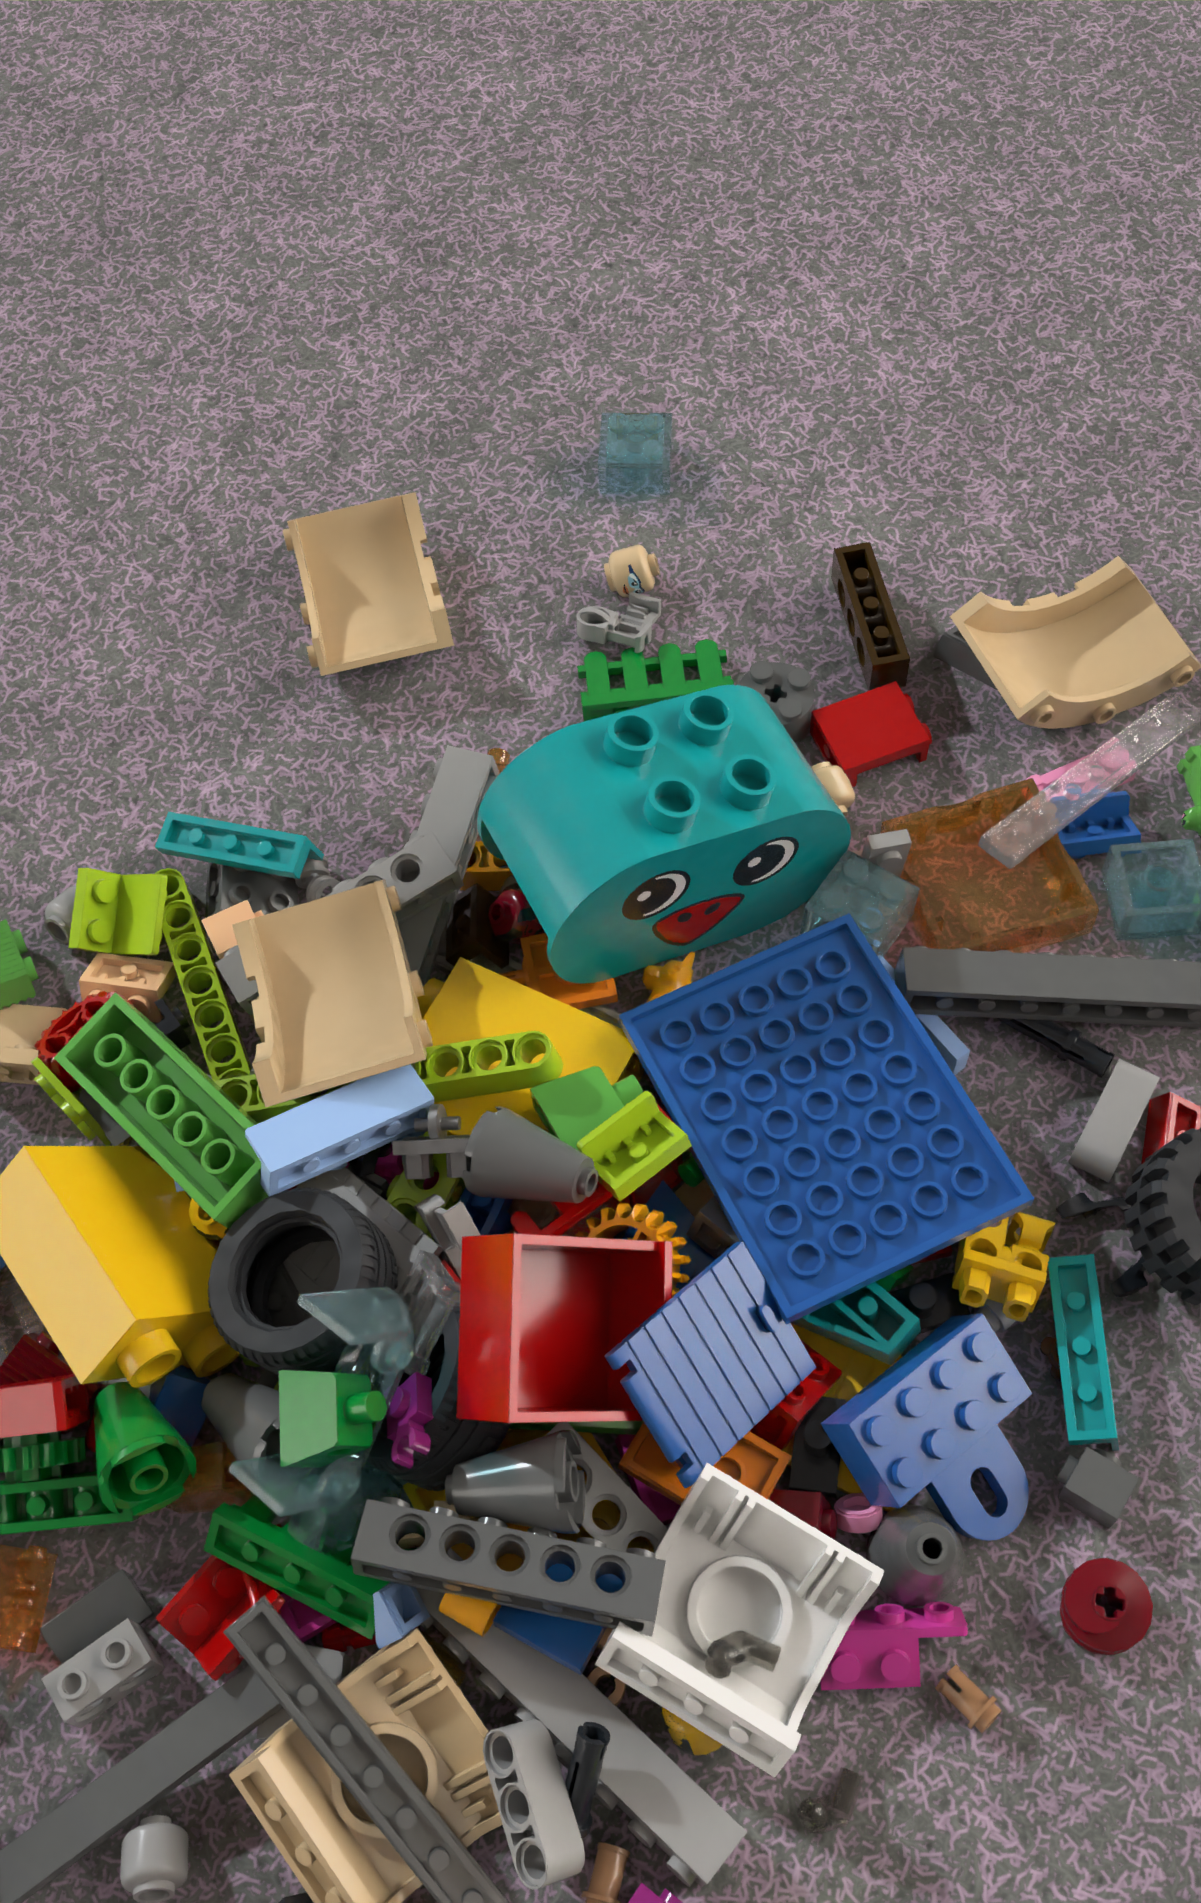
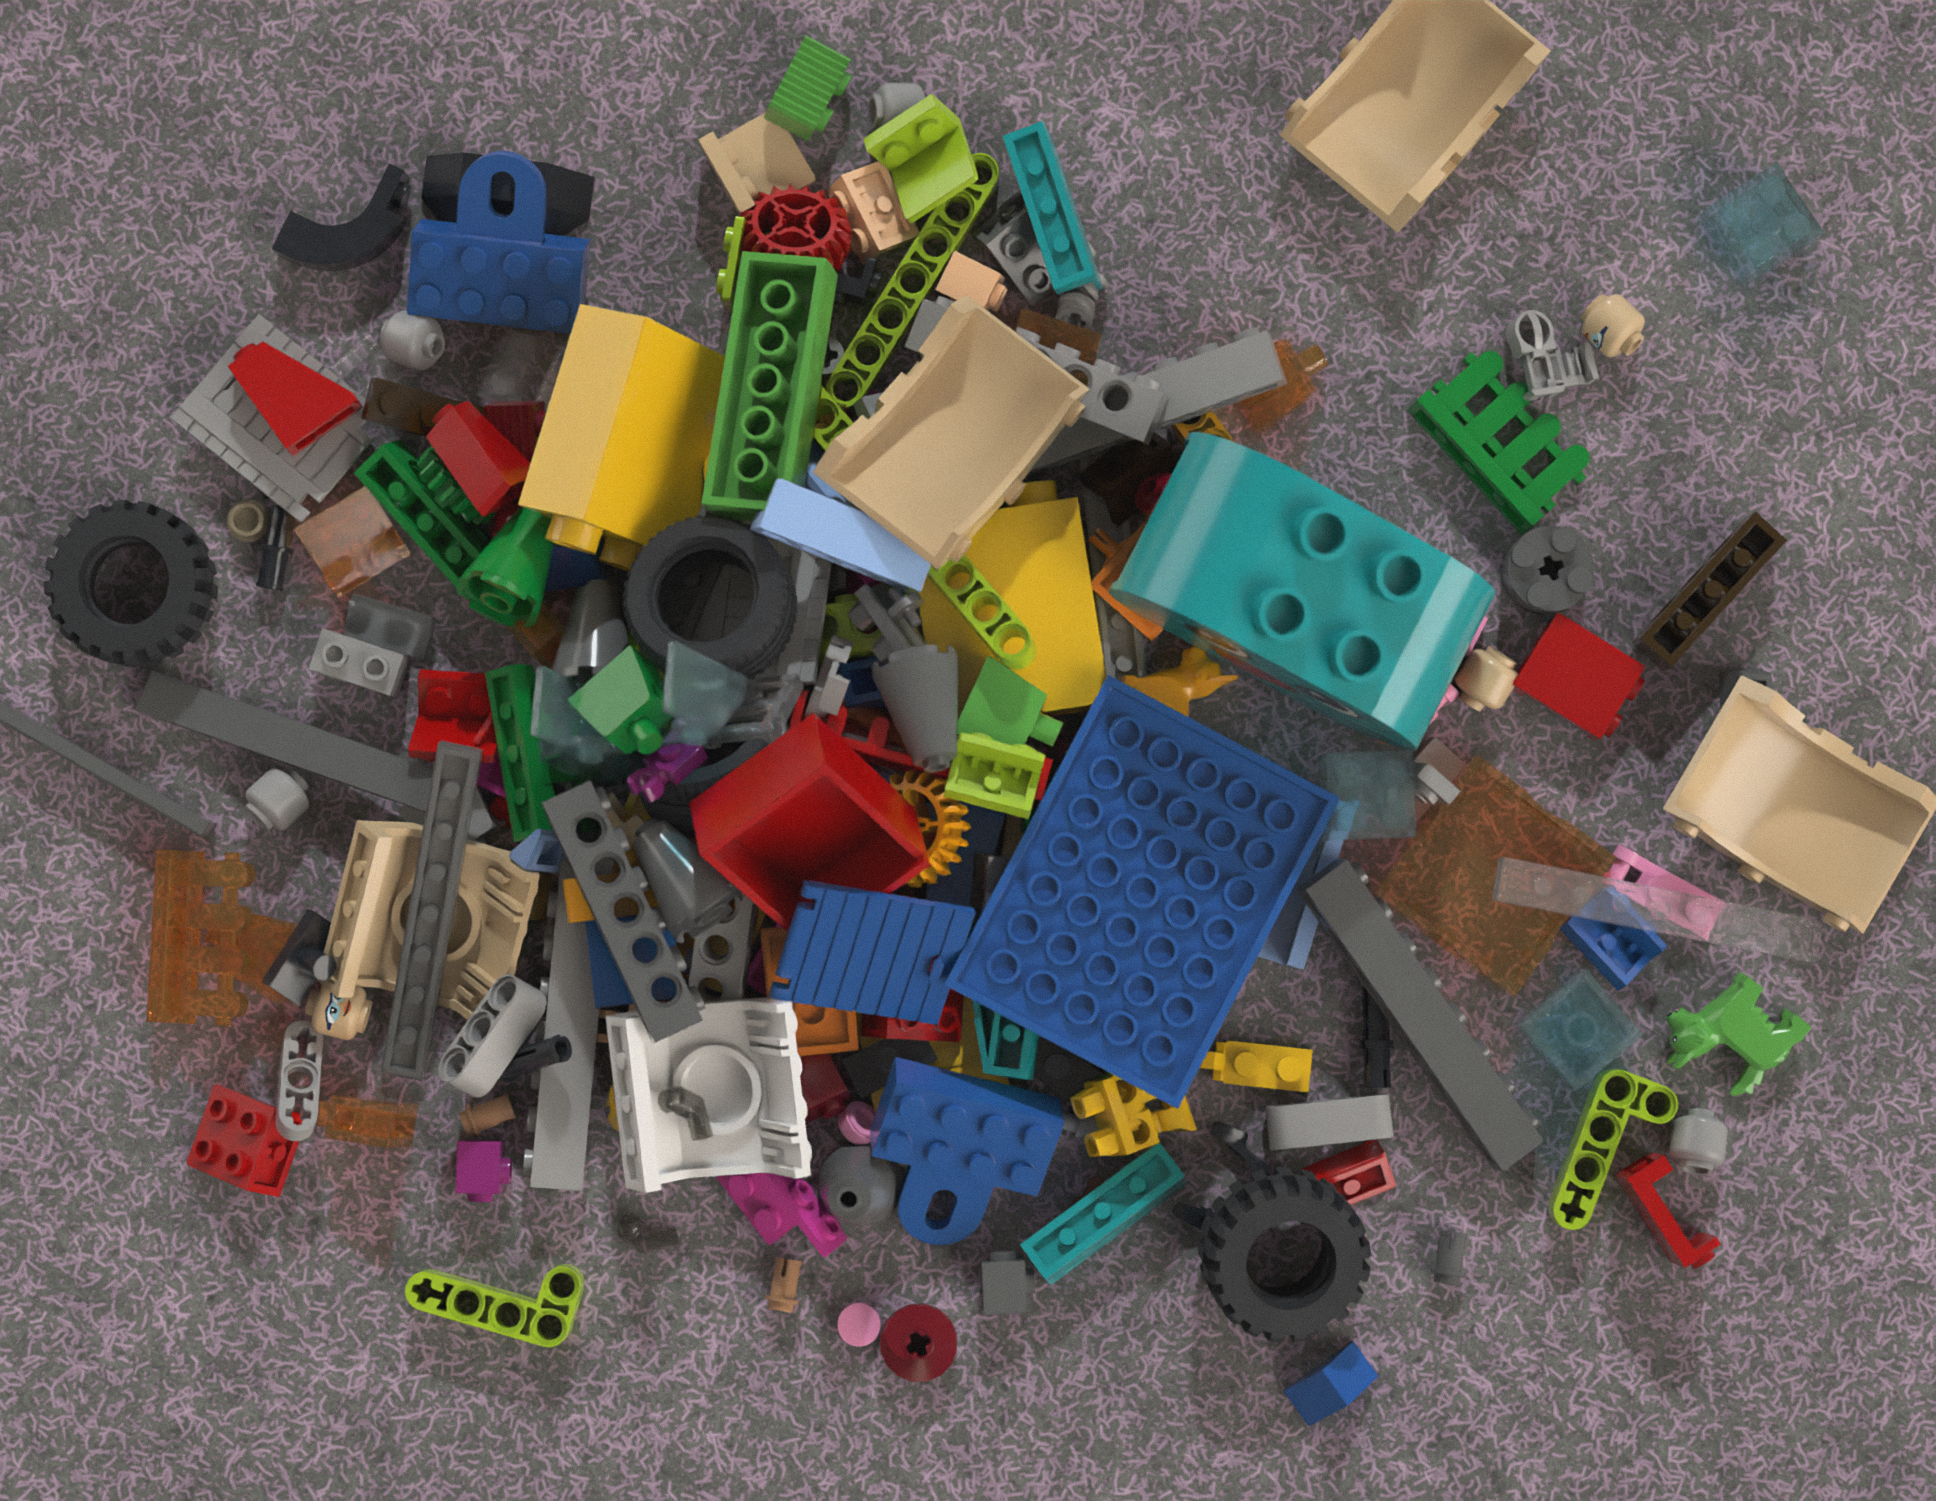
camera: 50 degrees right, 25 degrees up
(1036, 1136) = (1260, 1065): none -> yellow hinge
(1051, 1654) = (859, 1324): none -> bright pink tile

